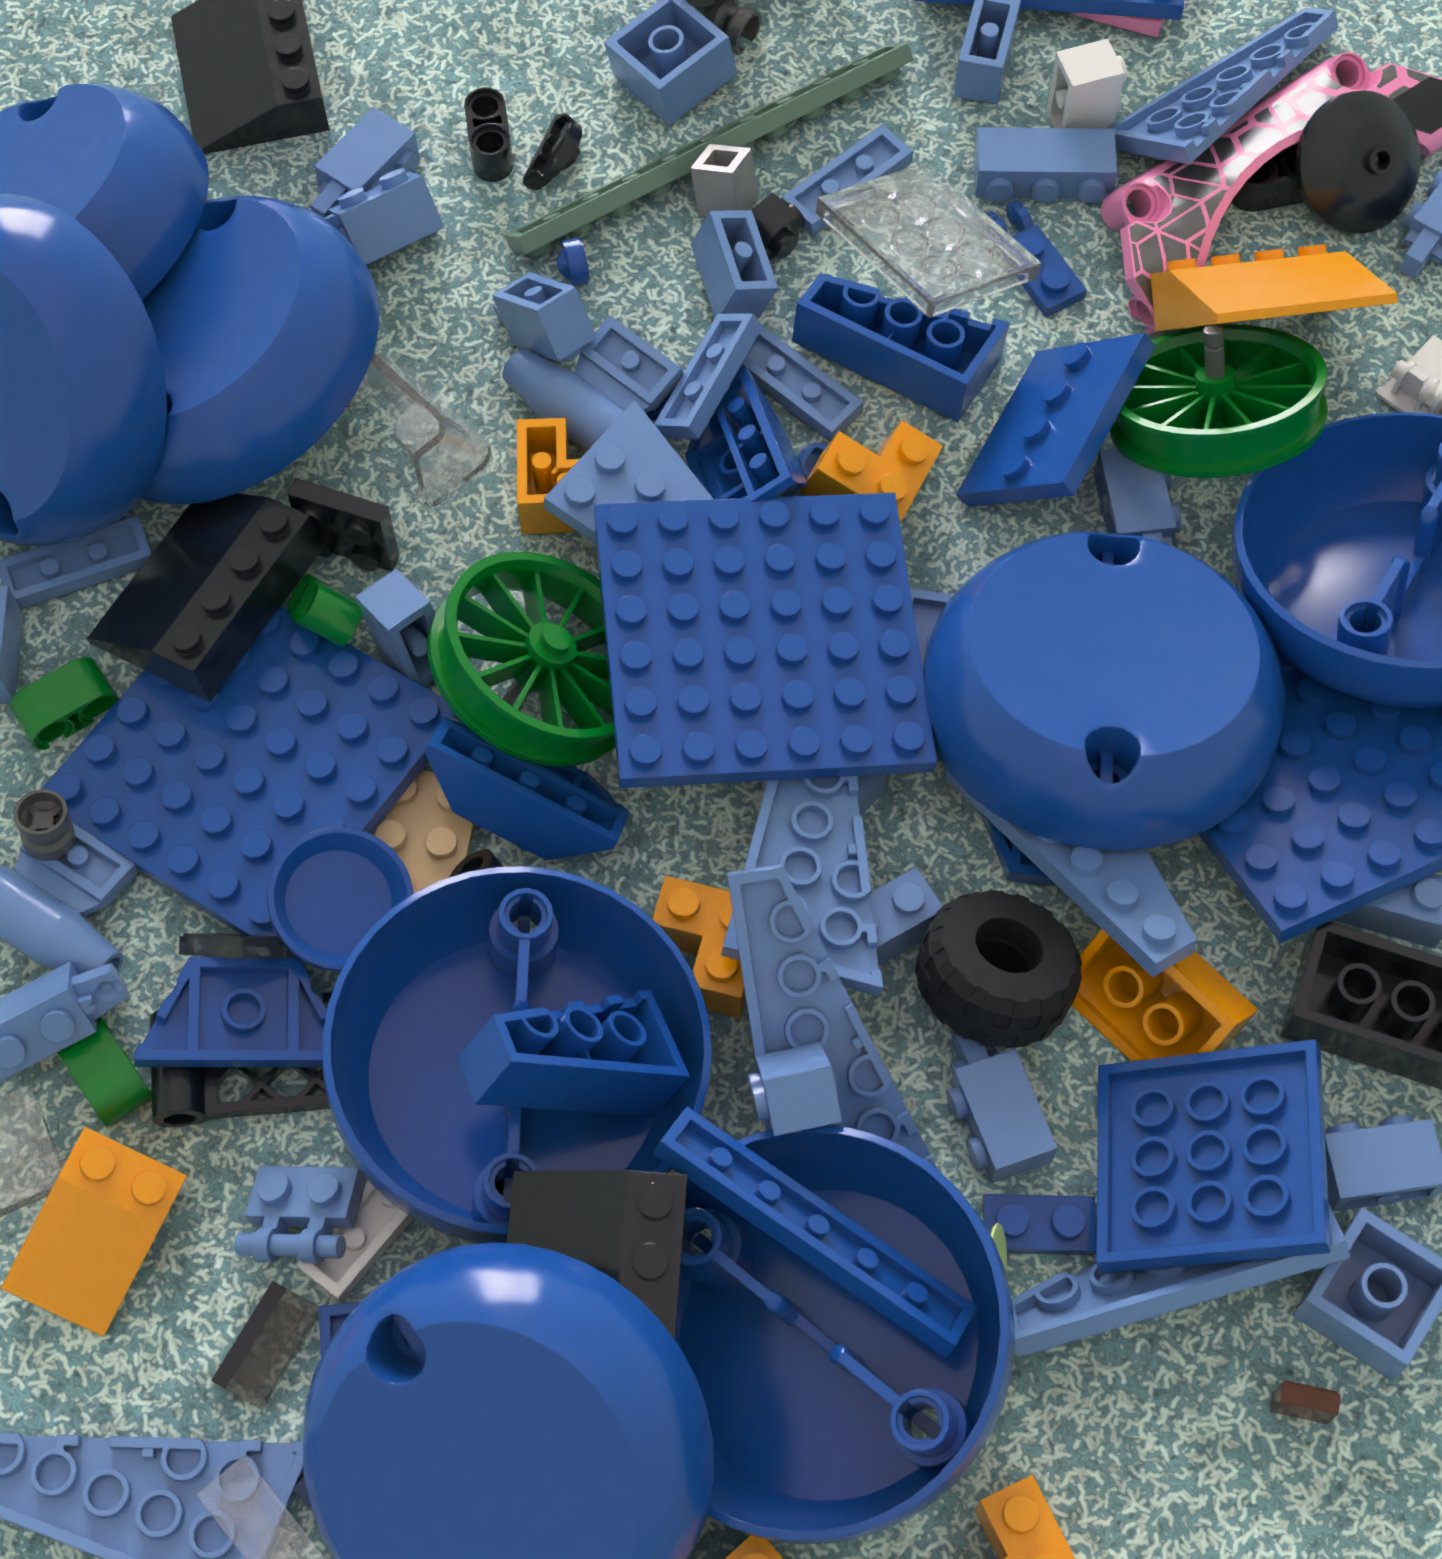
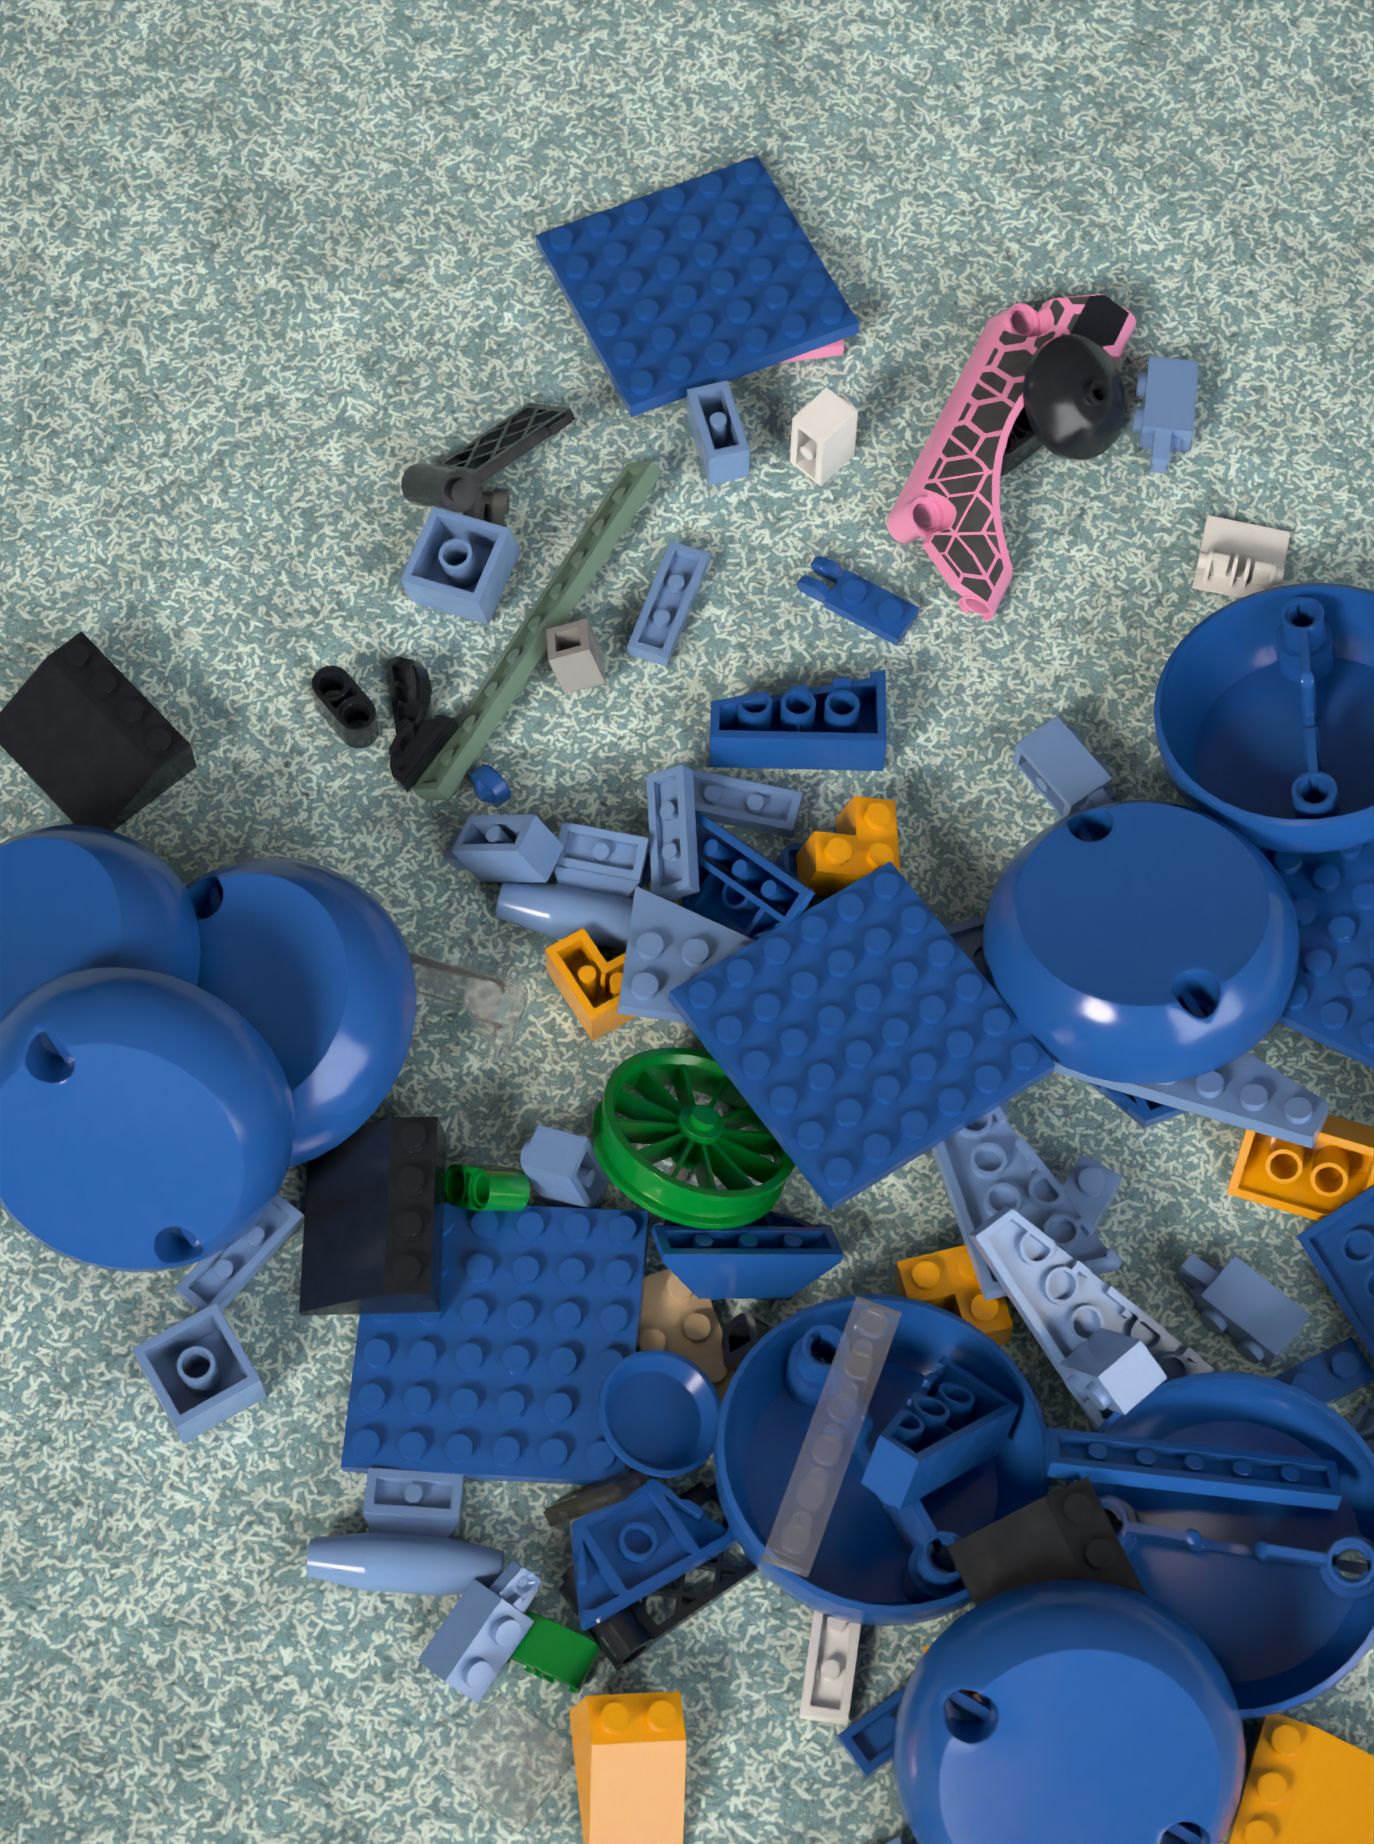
camera: 30 degrees left, 0 degrees up
(44, 824) = (378, 1470): dark grey wheel -> none
(63, 701) = (312, 1375): green beam -> none
(267, 1345) = (813, 1787): clear smoke tile -> none
(301, 1198) = (773, 1660): medium blue plate -> none
(348, 525) = (461, 1106): black plate -> none
(362, 157) = (257, 788): medium blue hinge -> none
(386, 215) = (311, 820): medium blue hinge -> none
(467, 1001) = (831, 1437): none -> clear plate
(532, 199) = (417, 747): none -> black plate
(734, 263) = (629, 726): medium blue brick -> none
(778, 225) = (636, 676): black plate -> none
(928, 239) = (772, 626): clear plate -> none
(994, 1005) = (1188, 1201): black tyre -> none
(1044, 163) = (822, 514): medium blue brick -> none
(1056, 421) = (970, 736): blue plate -> none
(1206, 105) = (926, 399): medium blue wing -> none
(1223, 402) = (1086, 658): green wheel -> none
(1263, 288) = (1072, 548): light orange slope -> none

